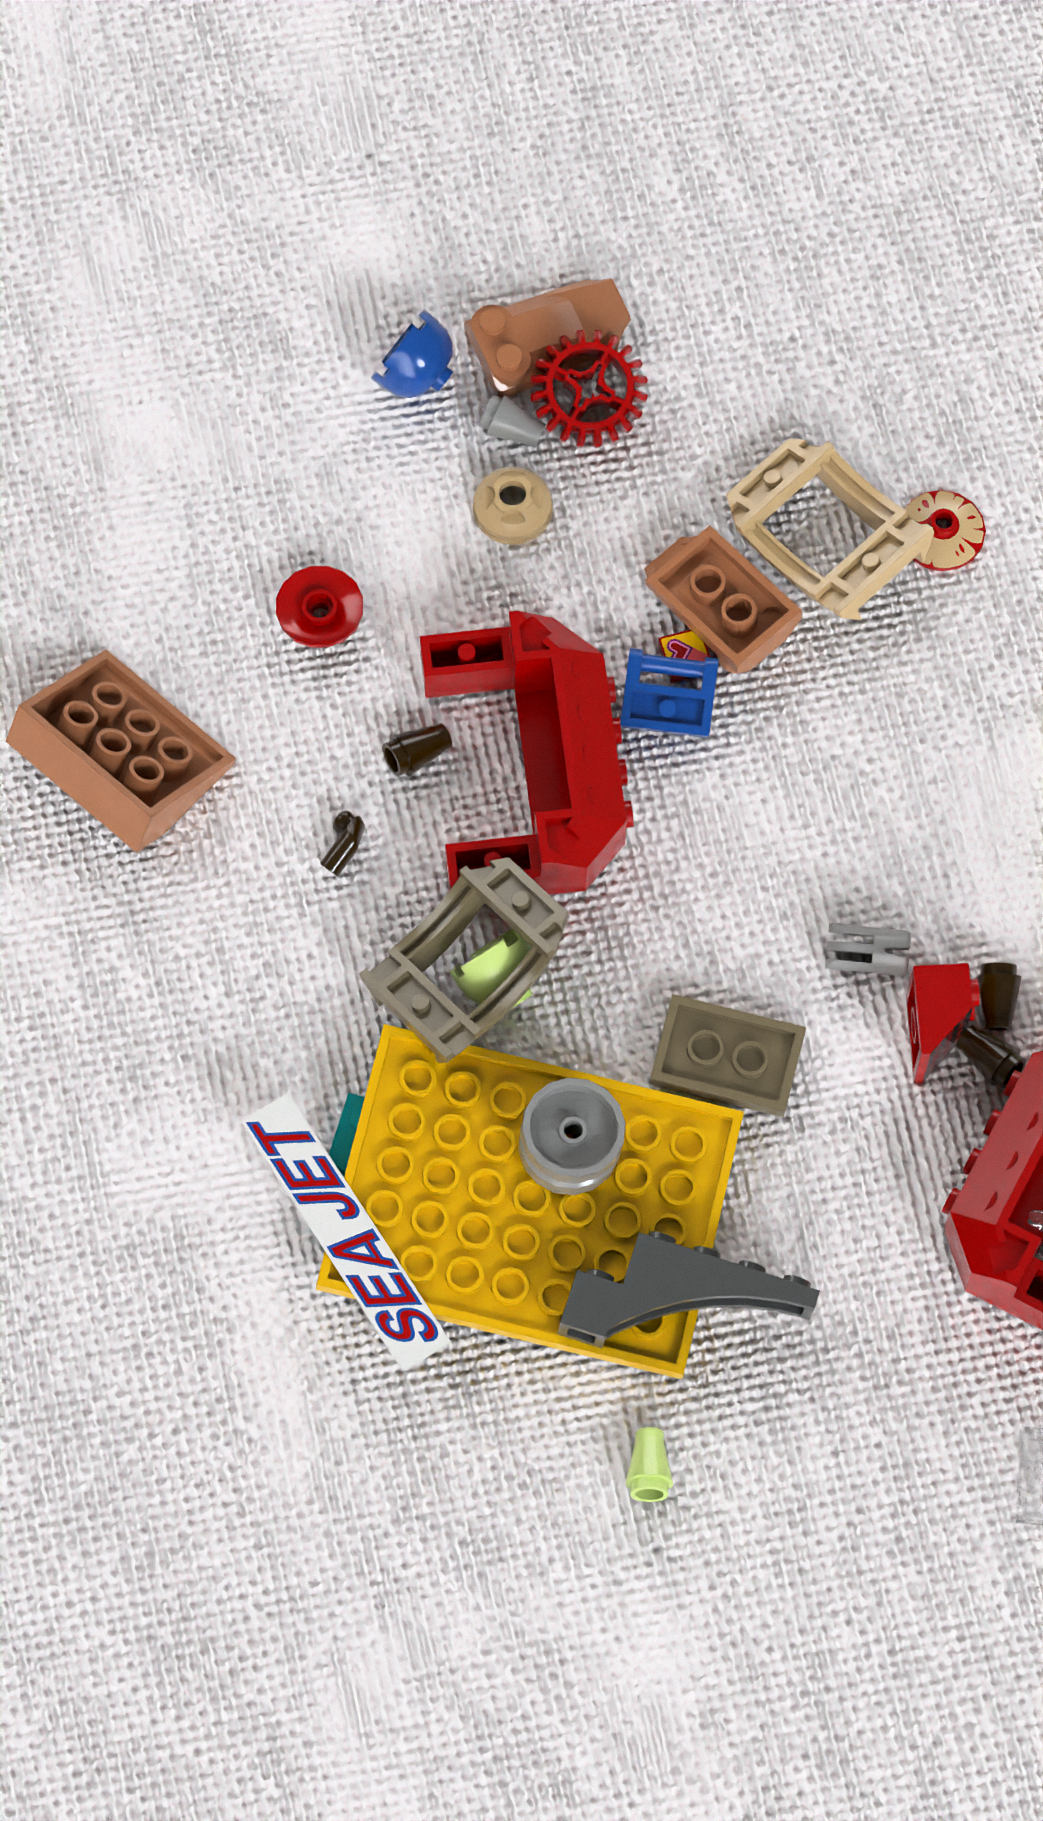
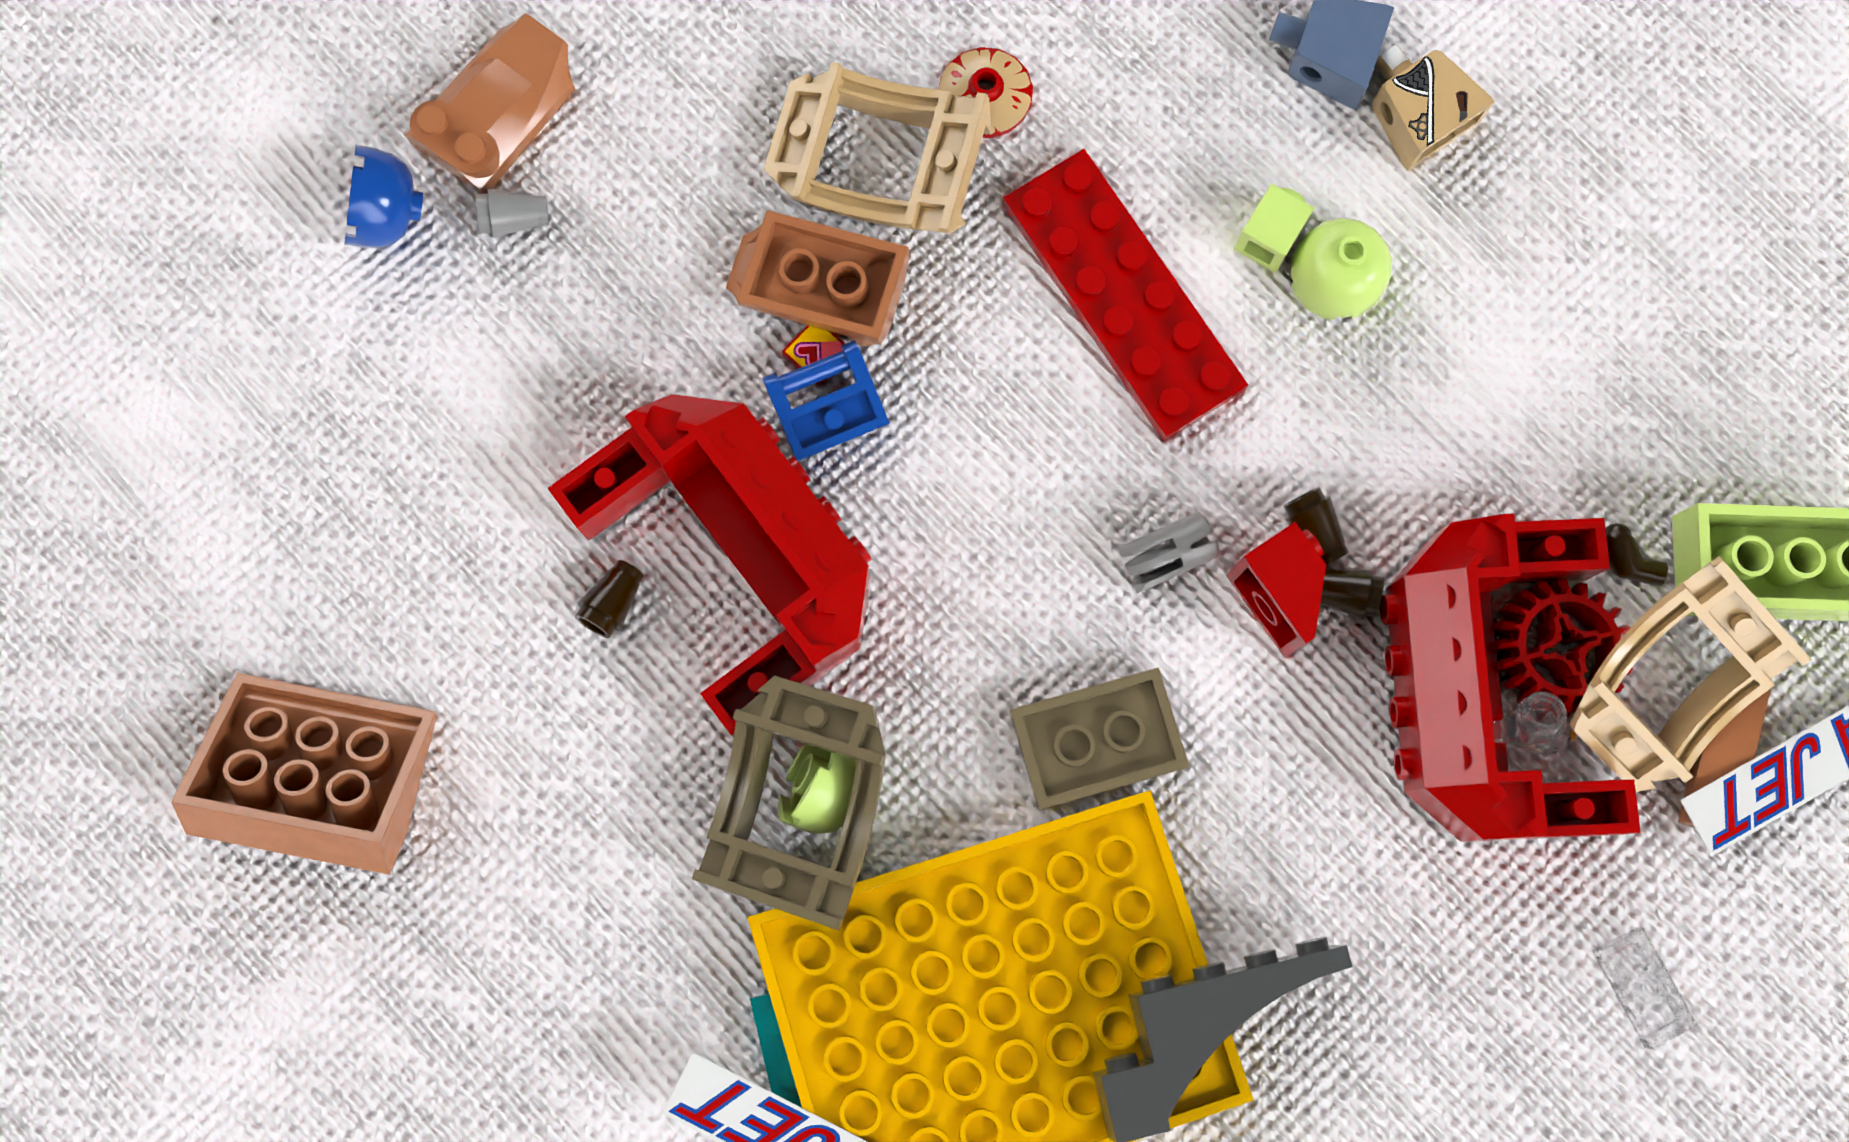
camera: 30 degrees left, 10 degrees up
(315, 589) = (410, 494): red dish -> none
(347, 844) = (598, 738): dark brown arm -> none
(512, 522) = (572, 313): tan piece -> none
(596, 1129) = (1043, 938): light grey wheel -> none
(606, 398) = (544, 136): red gear -> none
(955, 742) = (1124, 295): none -> red plate

